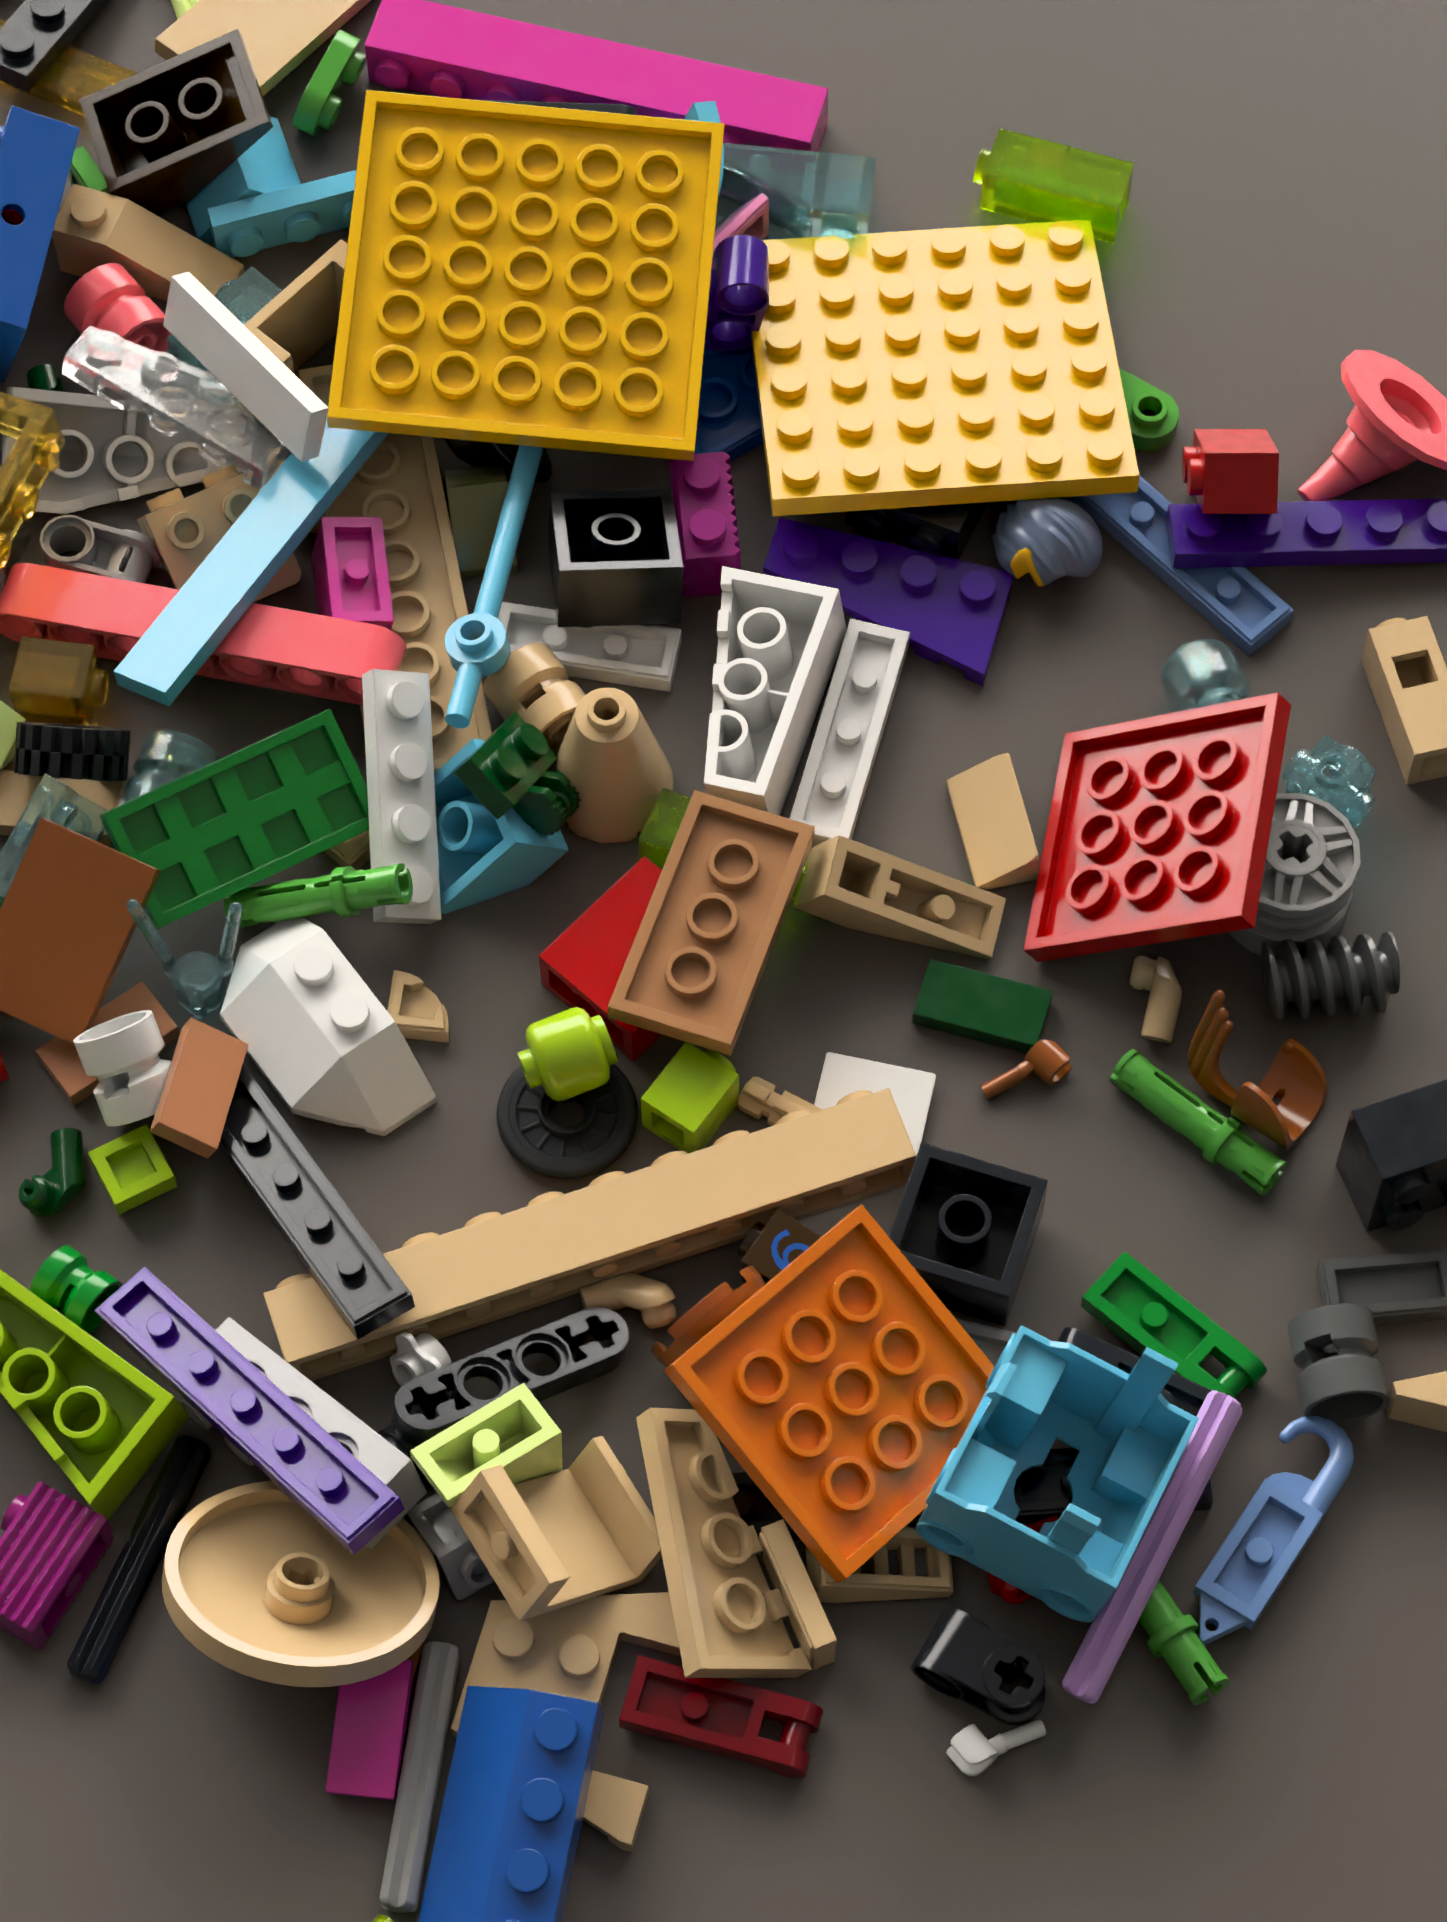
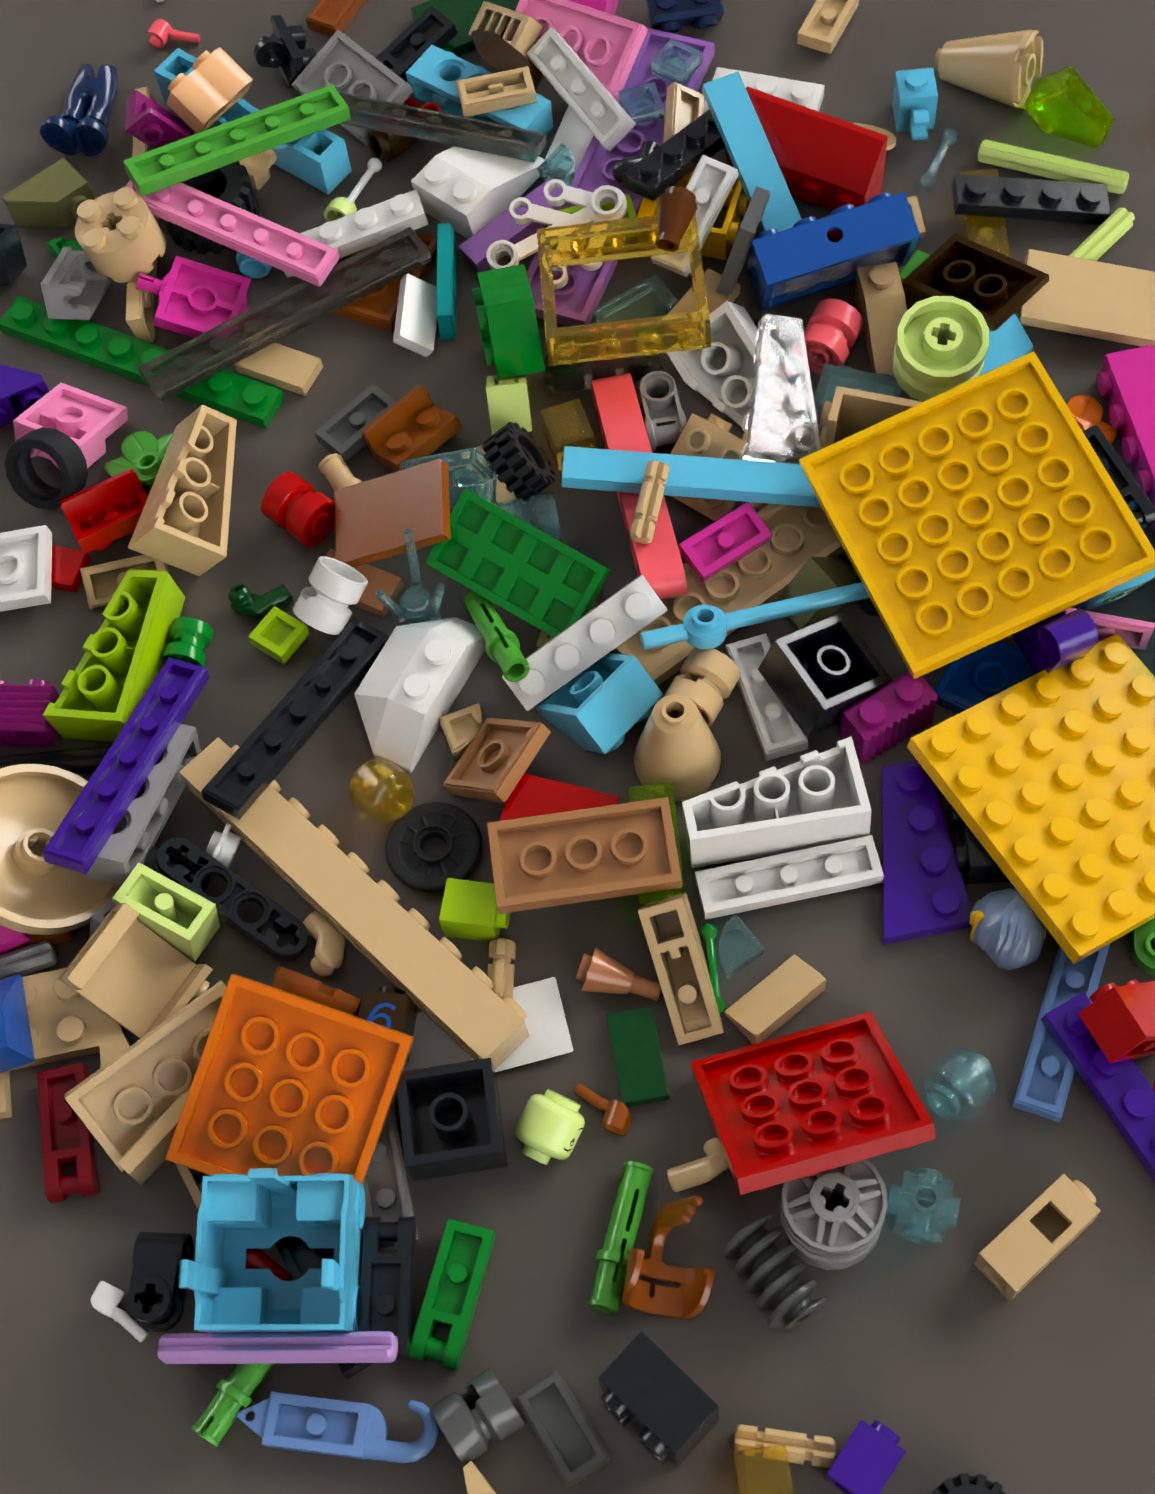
camera: 70 degrees right, 0 degrees up
(199, 1088) = (331, 636): nougat tile -> none
(245, 366) = (814, 404): white tile -> none
(259, 197) = (939, 346): none -> yellowish green wheel
(268, 612) = (649, 502): none -> tan axle
(320, 100) = (1073, 353): bright green plate -> none
(456, 1134) = (382, 790): none -> clear yellow head
(500, 975) = (496, 759): none -> medium nougat tile
(512, 773) = (625, 684): dark green hinge -> none
(567, 1054) = (456, 821): lime head -> none
(858, 992) = (608, 975): none -> nougat cone
(900, 833) = (737, 946): none -> clear light blue tile
(1025, 1132) = (549, 1126): none -> yellowish green head

